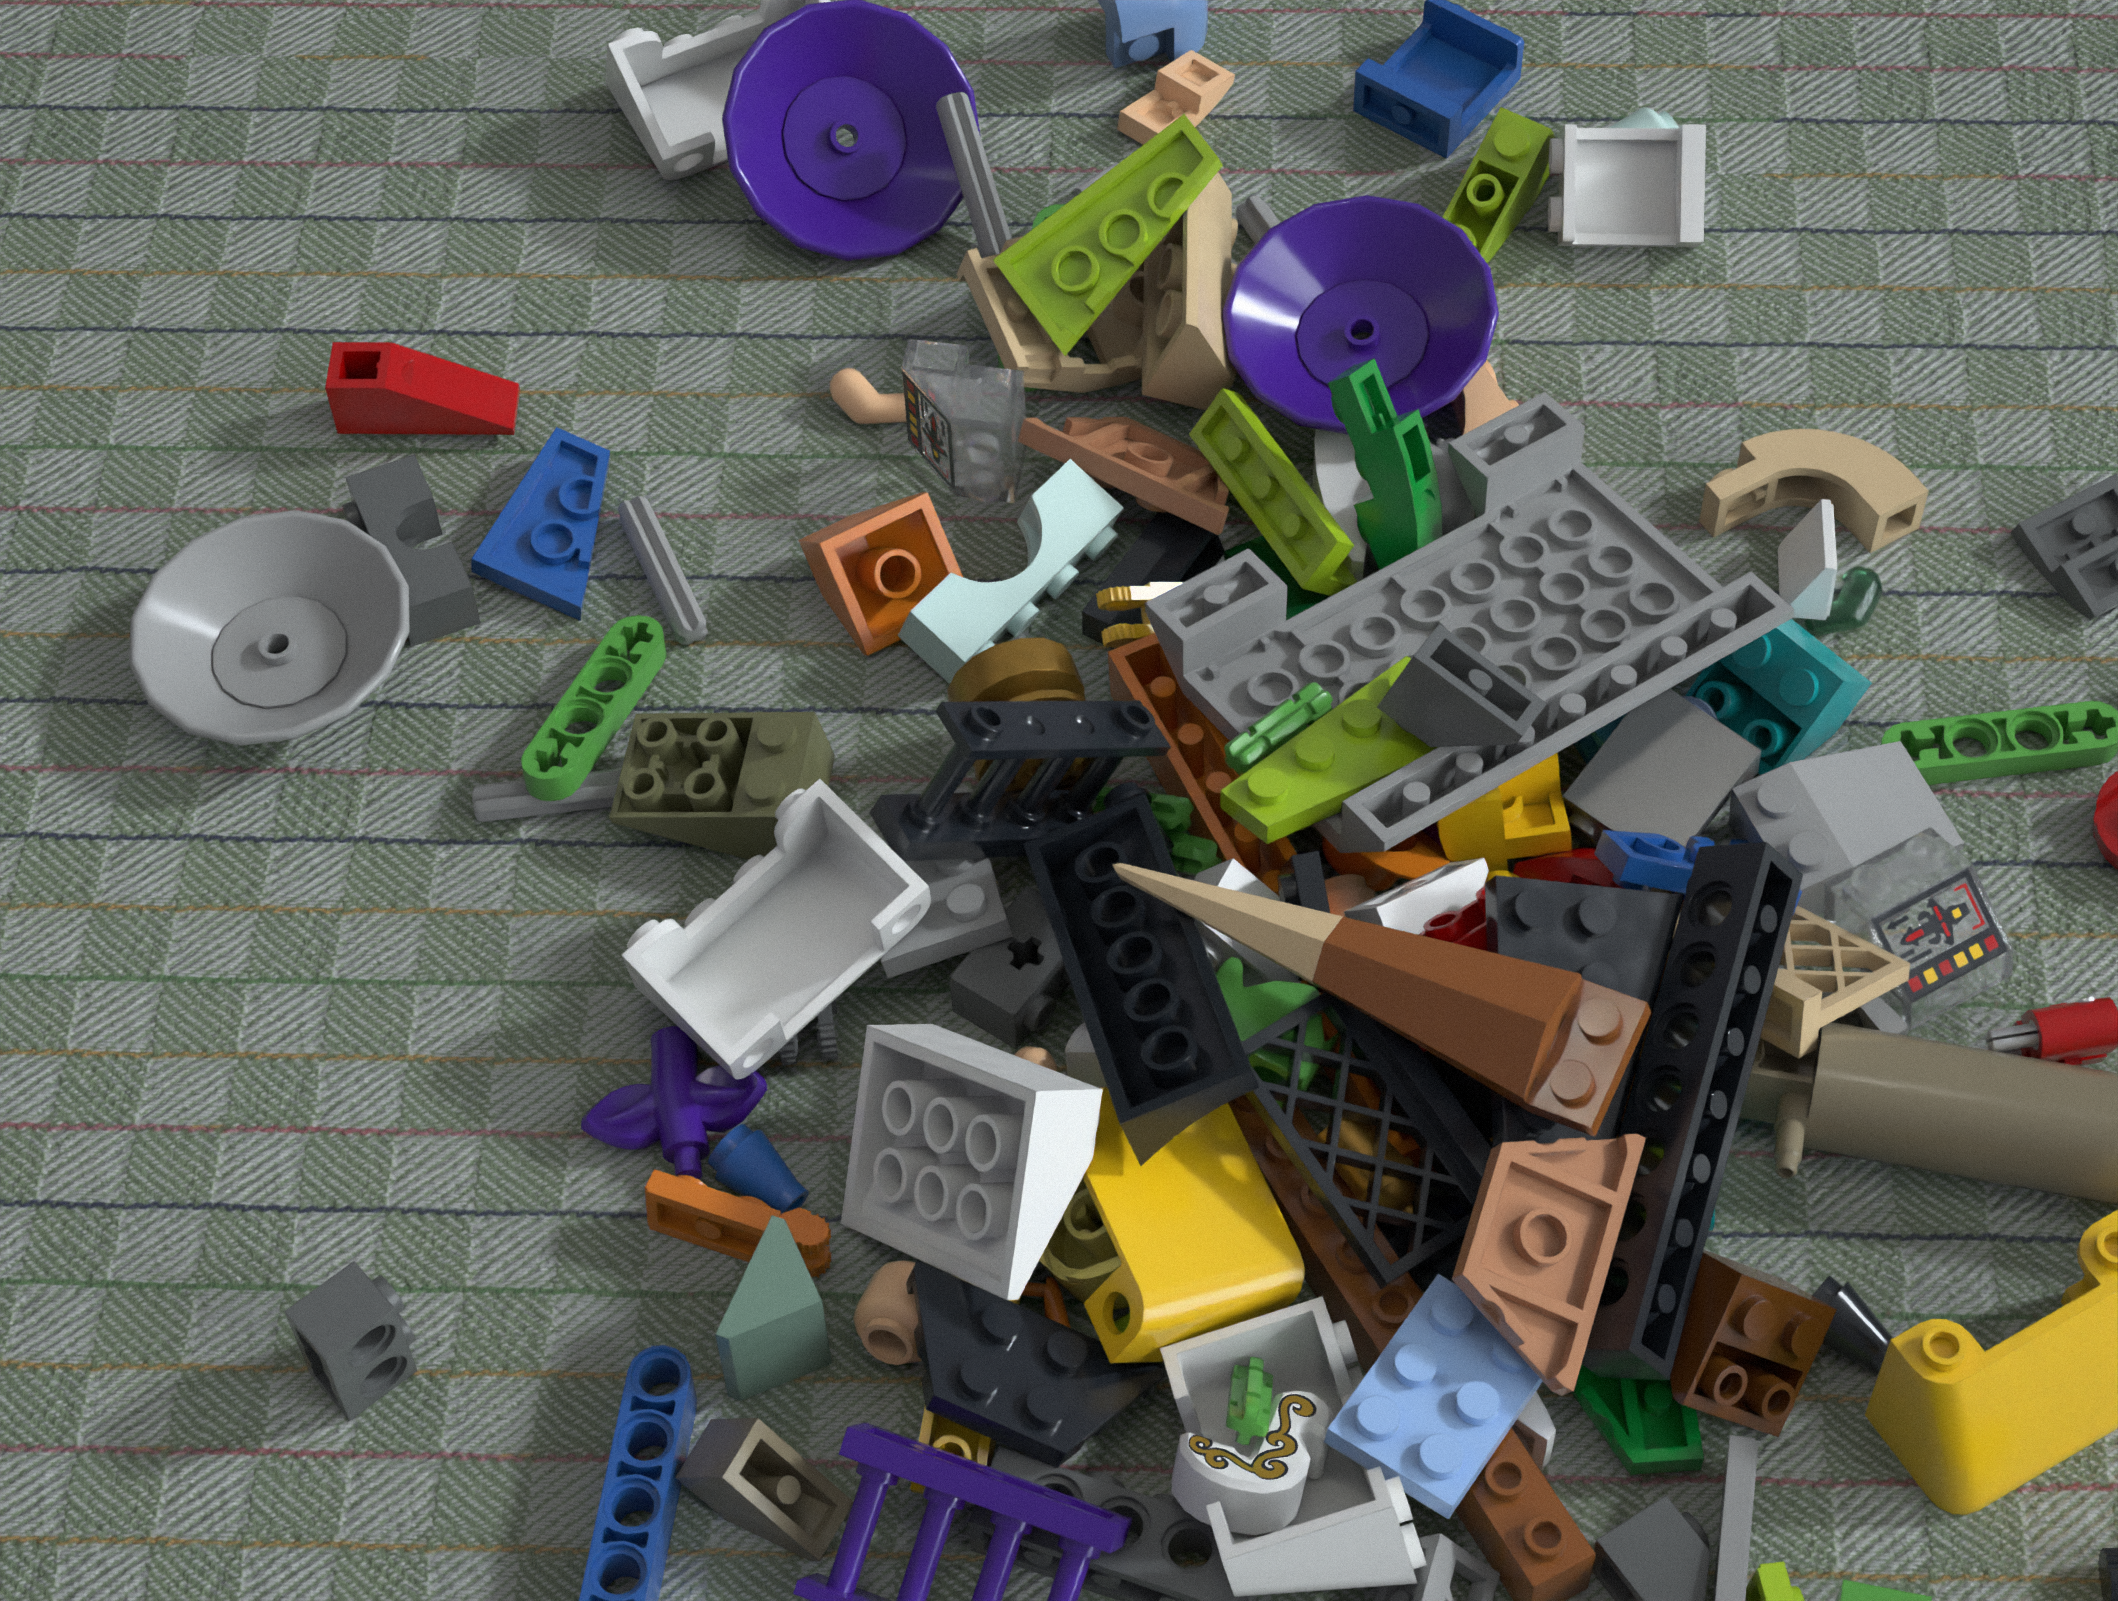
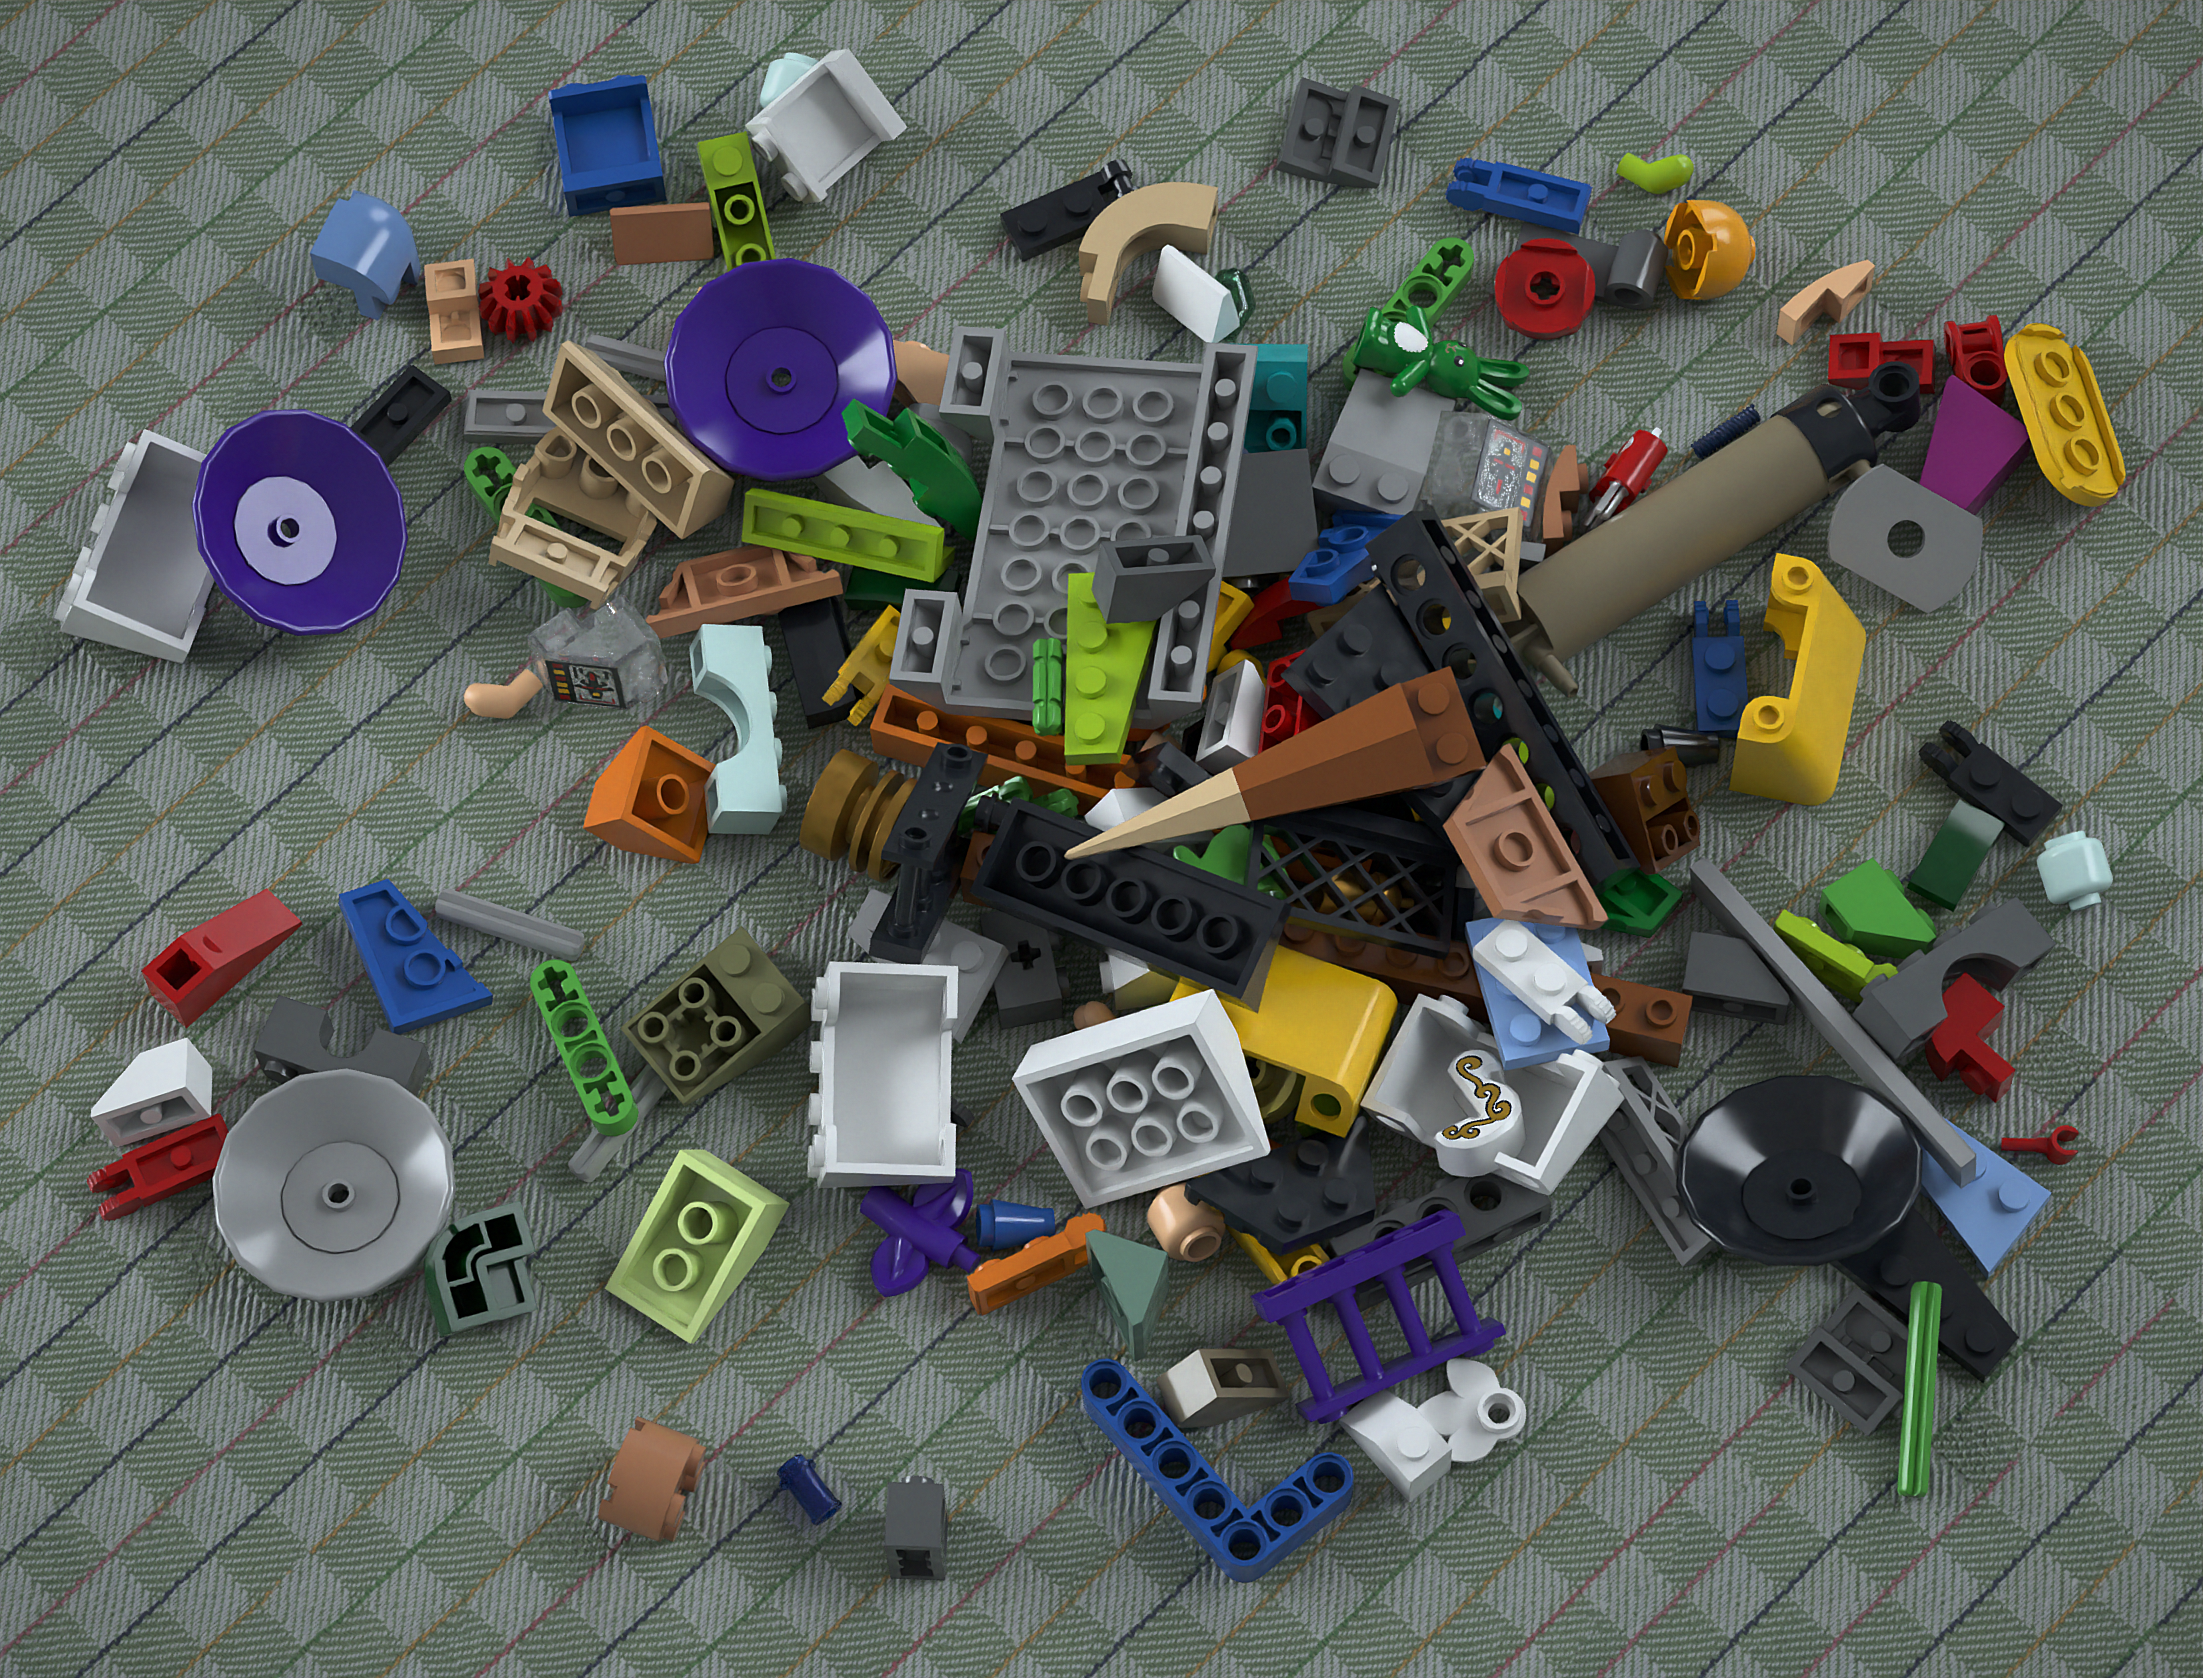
camera: 45 degrees left, 10 degrees up
(175, 507) = (161, 1167): none -> red hinge
(208, 1086) = (651, 1480): none -> nougat brick
(246, 451) = (156, 1094): none -> white slope
(286, 791) = (479, 1270): none -> dark green brick
(330, 1227) = (808, 1488): none -> clear blue pin
(493, 938) = (696, 1243): none -> yellowish green slope
(973, 173) = (405, 482): light grey axle -> none
(1039, 137) = (401, 413): none -> black hinge
(1099, 238) = (576, 465): lime wing -> none
(1238, 126) = (520, 299): none -> red gear
(1249, 1401) = (1442, 1086): bright green axle -> none
(1405, 166) = (662, 233): none -> nougat slope
(1442, 1381) = (1541, 979): none -> white hinge
(1746, 410) = (1064, 212): none -> black plate
(1977, 1005) = (1562, 499): none -> nougat slope
(1978, 1286) = (1718, 672): none -> blue hinge
(1984, 804) = (1447, 365): none -> green animal

